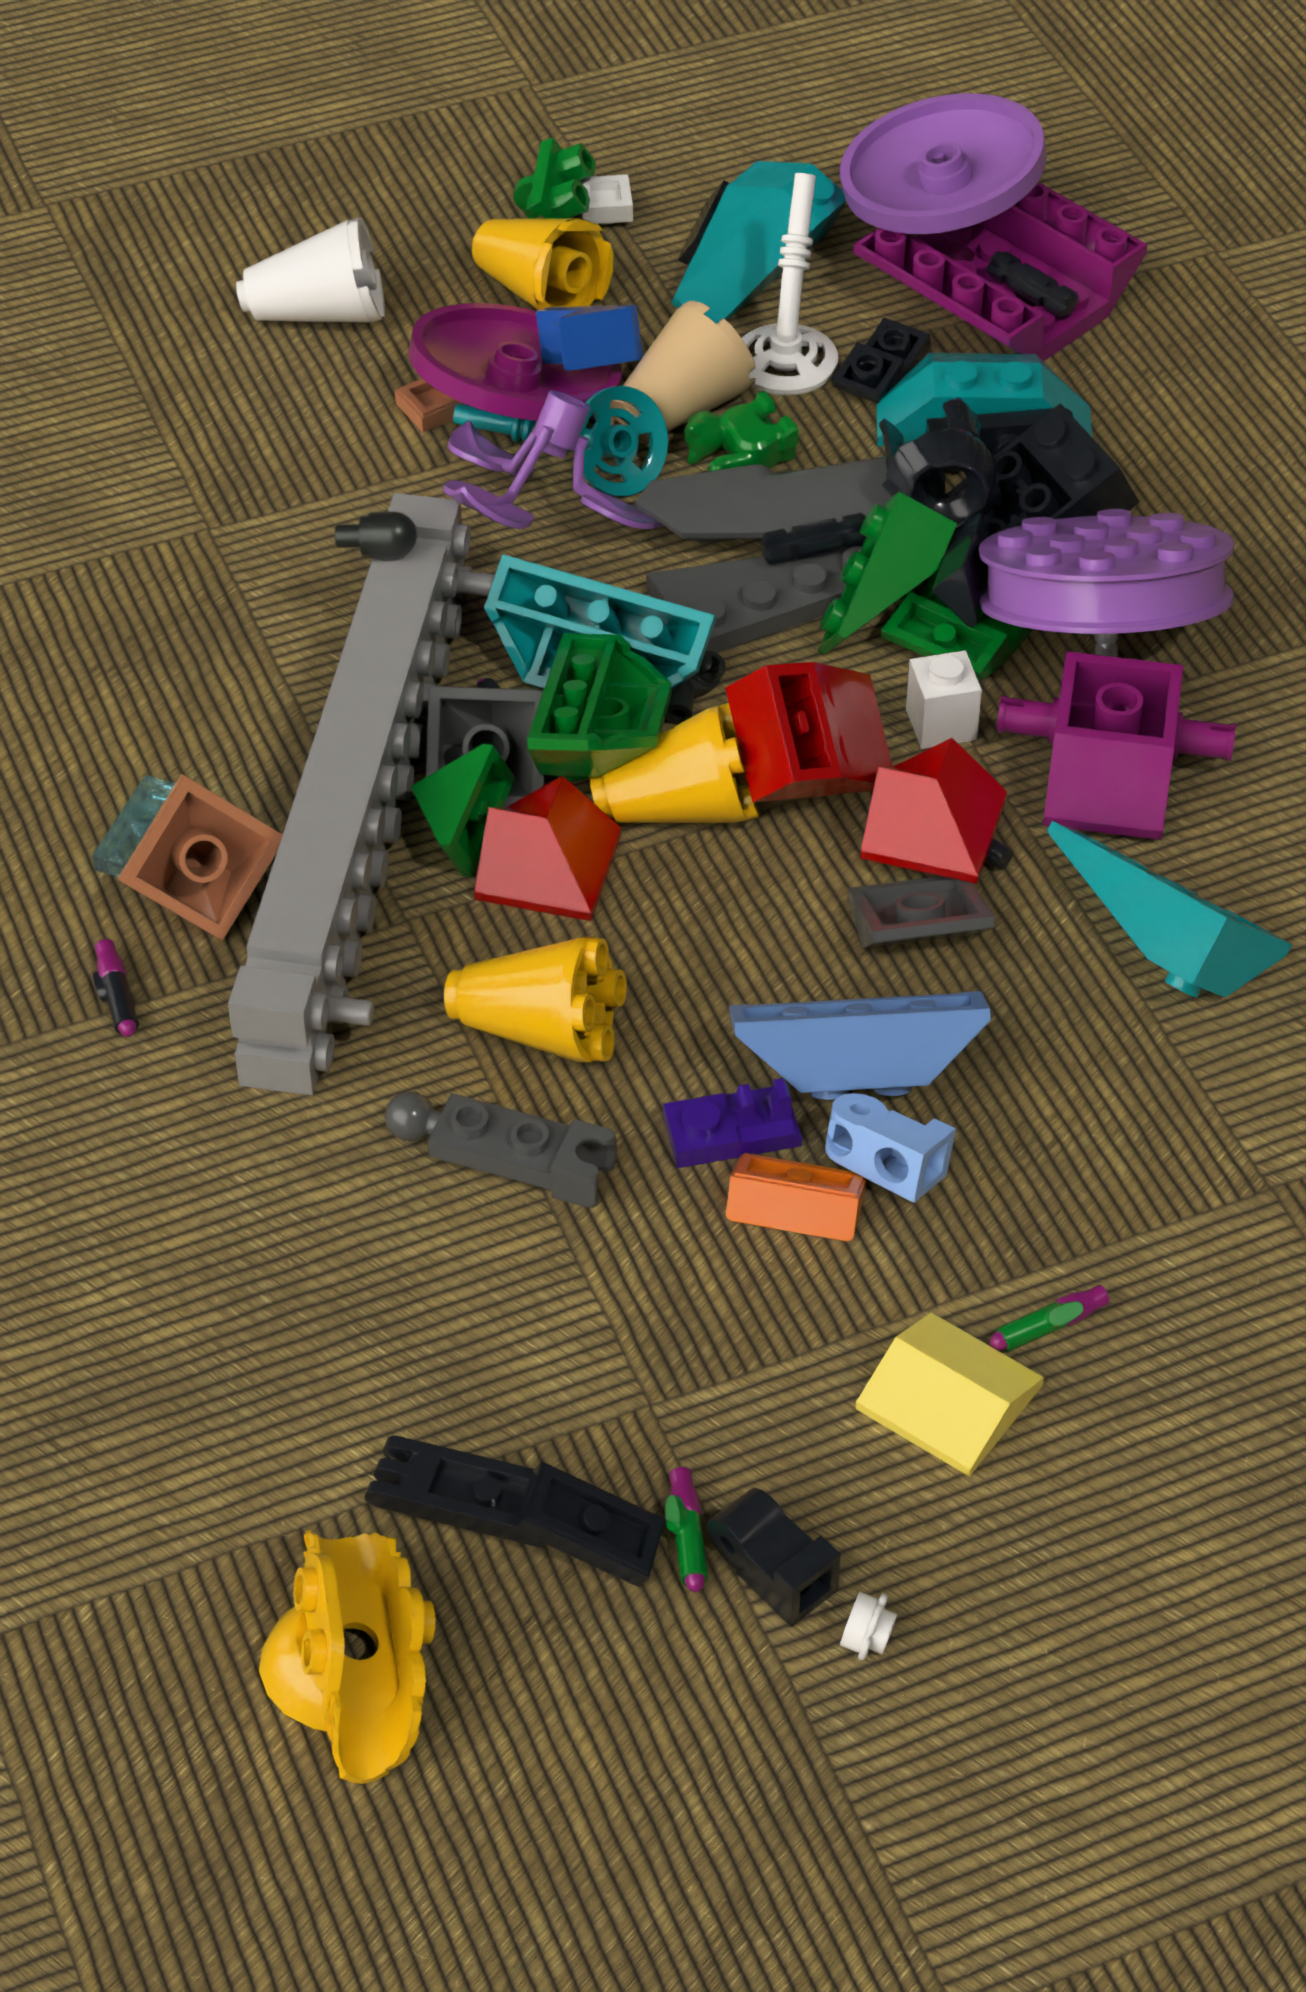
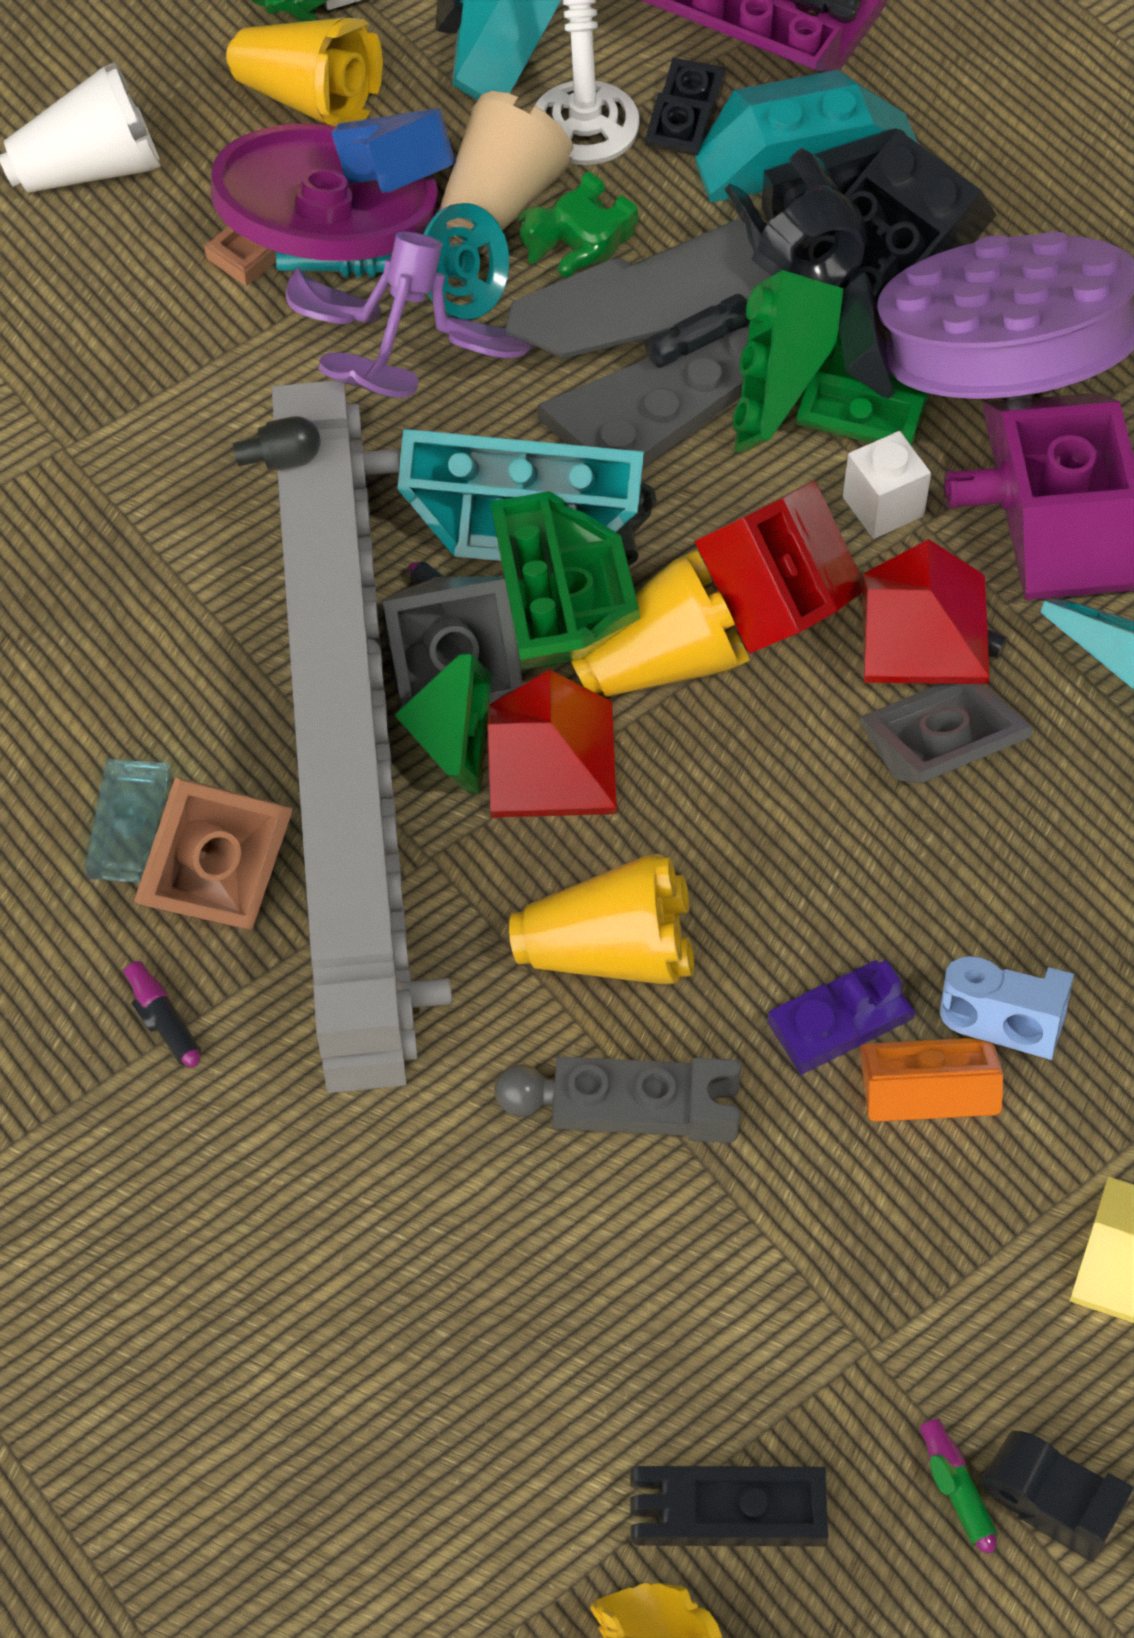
camera: 15 degrees left, 10 degrees up
(590, 1524) = (869, 1513): black plate -> none
(861, 1042) = (947, 891): medium blue wedge -> none

